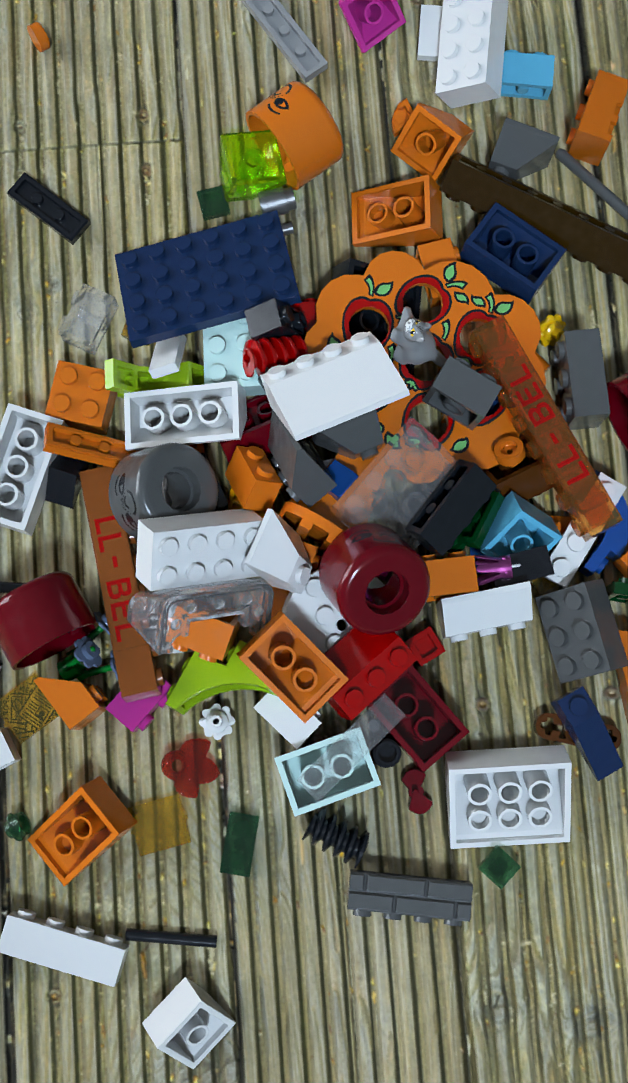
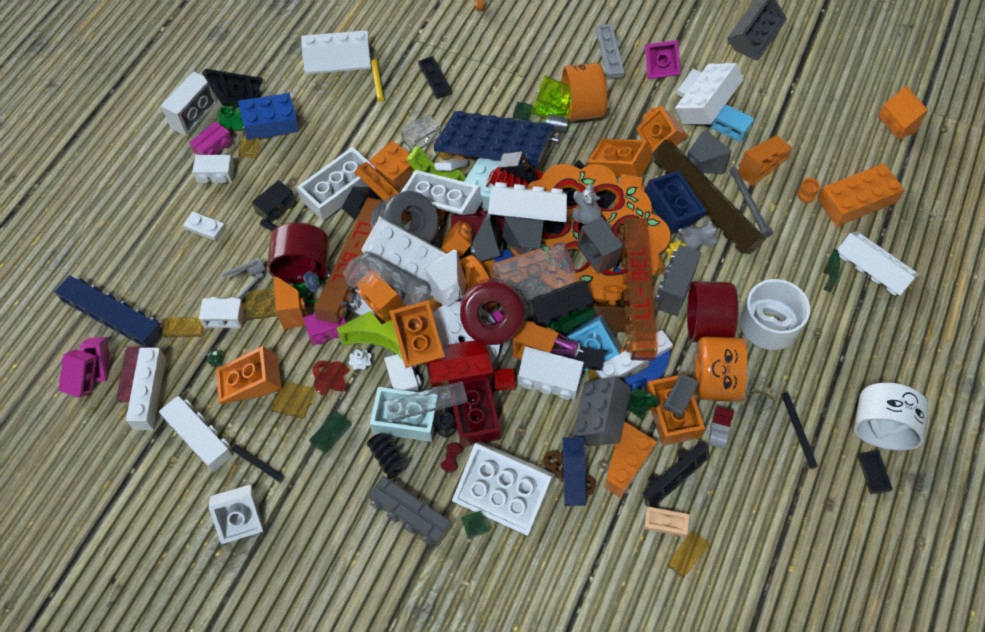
camera: 30 degrees right, 20 degrees down
(564, 294) = (698, 236): none -> light grey animal

